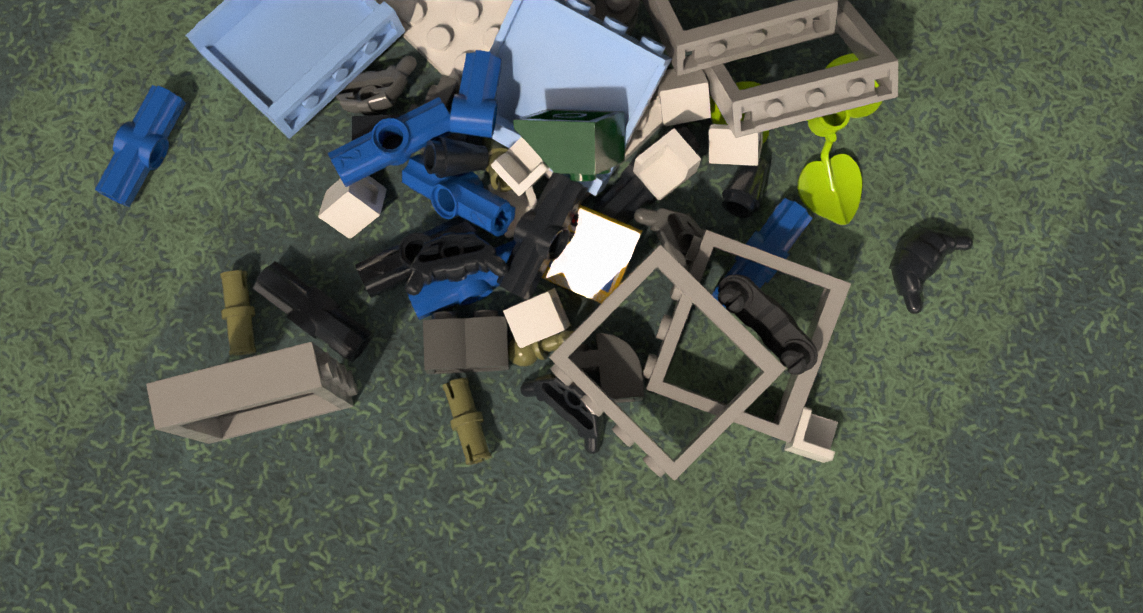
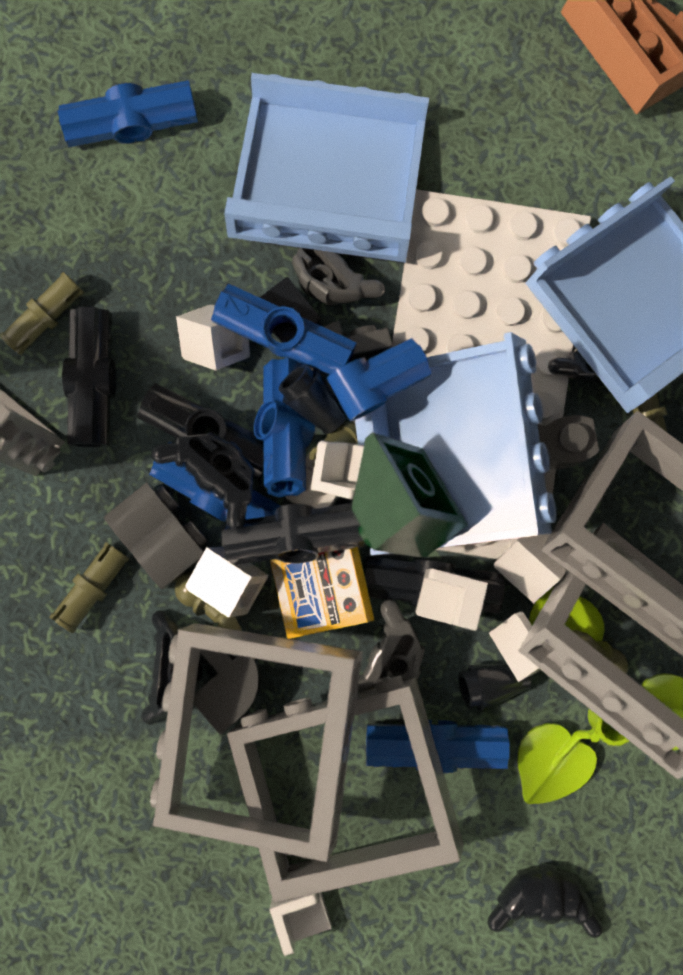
camera: 50 degrees right, 5 degrees up
(769, 321) = (362, 824): black piece -> none

